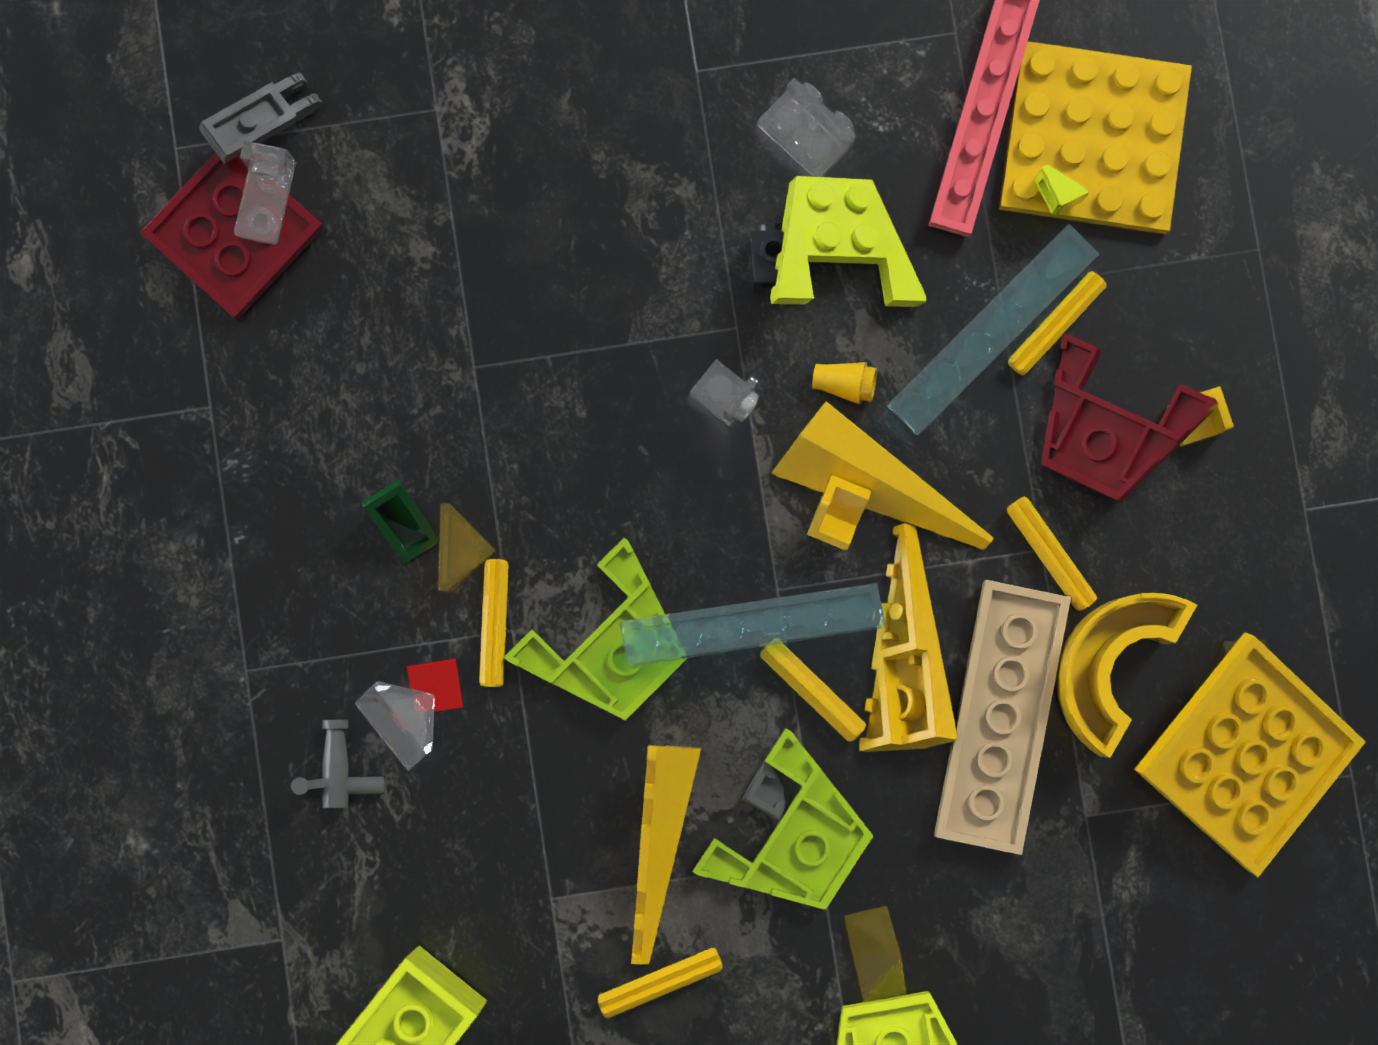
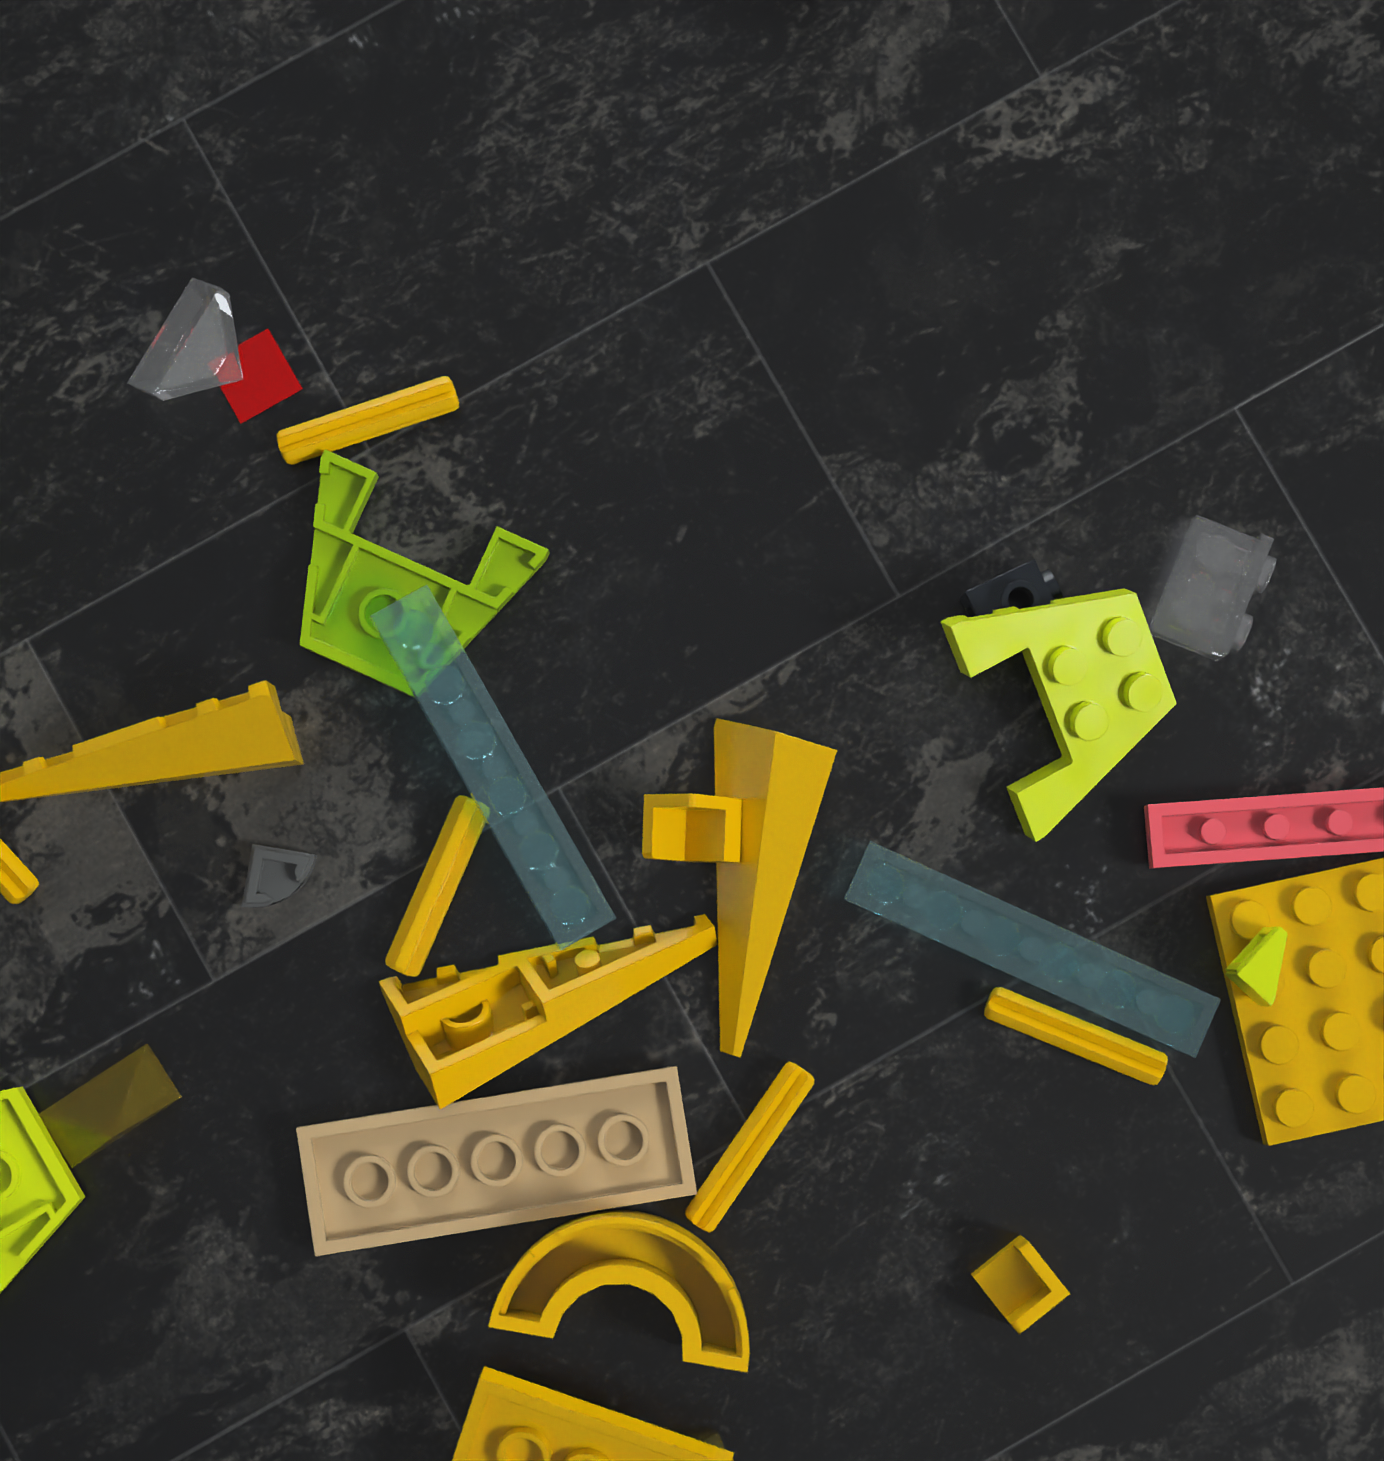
camera: 70 degrees right, 0 degrees up
(335, 779) = (79, 289): dark grey piece -> none
(400, 521) = (454, 240): dark green slope -> none
(459, 549) = (449, 334): clear yellow slope -> none
(726, 393) = (799, 613): clear bracket -> none
(809, 846) = (221, 960): lime wing -> none
(846, 380) = (881, 773): yellow cone -> none
(1105, 443) = (929, 1162): dark red wing -> none

